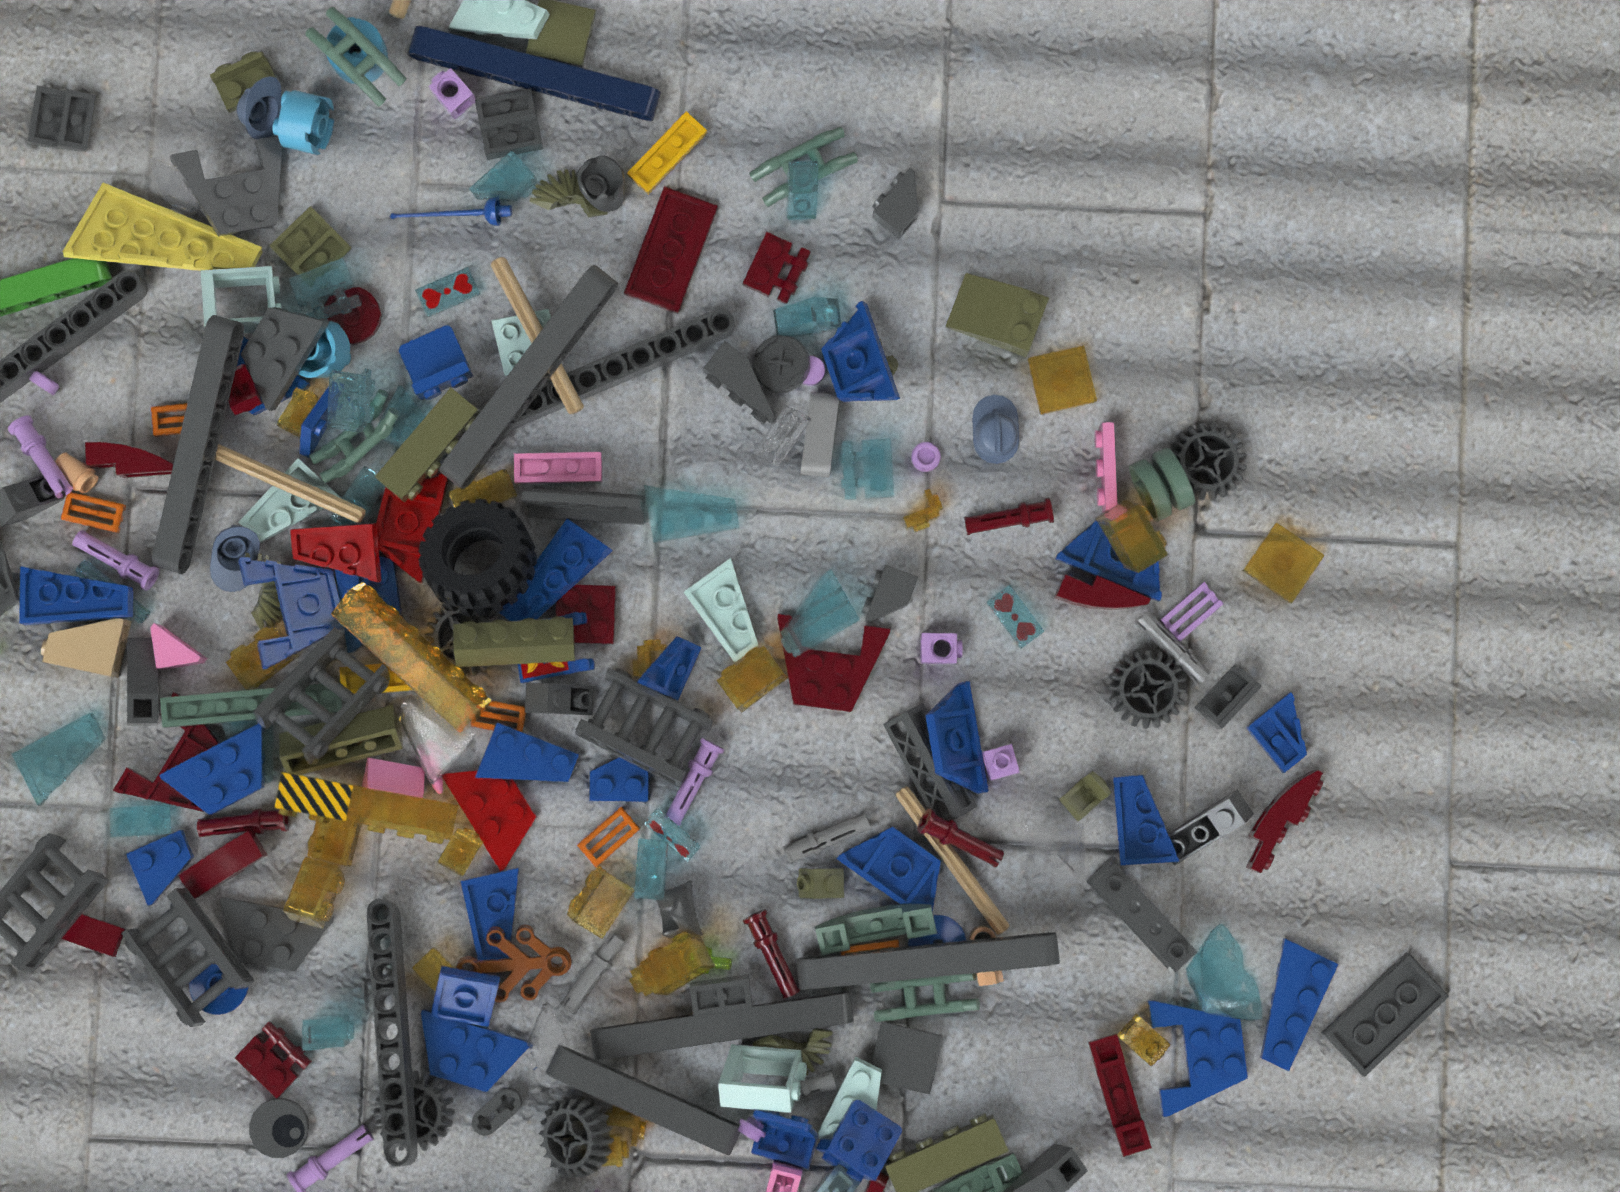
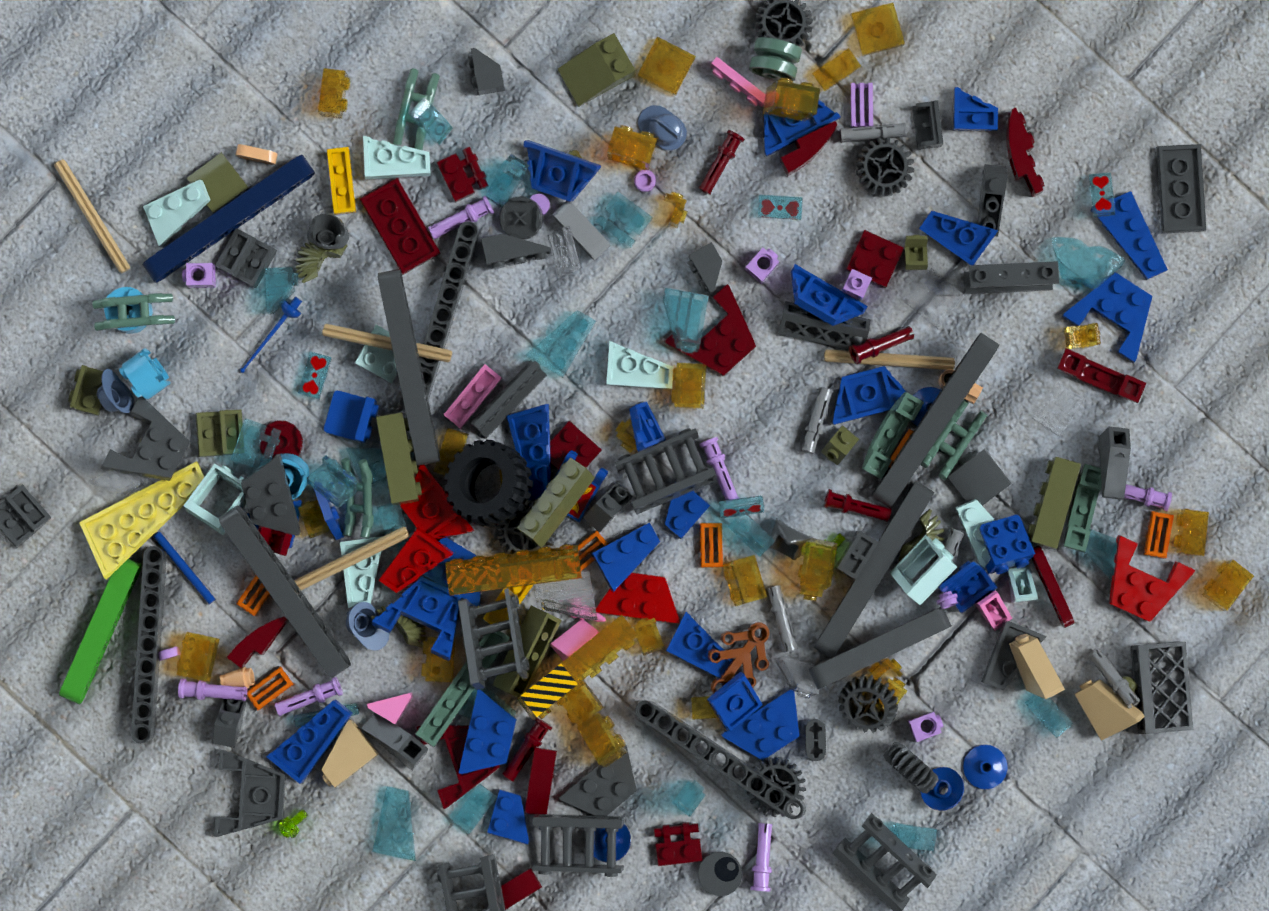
camera: 50 degrees left, 0 degrees up
(64, 413) = (197, 656): none -> clear yellow bracket
(145, 325) = (186, 570): none -> blue bar
(622, 46) = (256, 154): none -> light nougat beam
(728, 184) = (393, 161): none -> light aqua wing
(742, 309) = (470, 213): none -> lavender pin
(748, 70) = (333, 93): none -> clear yellow brick
(946, 415) = (632, 147): none -> clear yellow brick
(1044, 758) = (875, 258): none -> dark red plate
(1206, 556) = (837, 70): none -> clear yellow slope
(1308, 937) = (1102, 194): none -> clear light blue tile

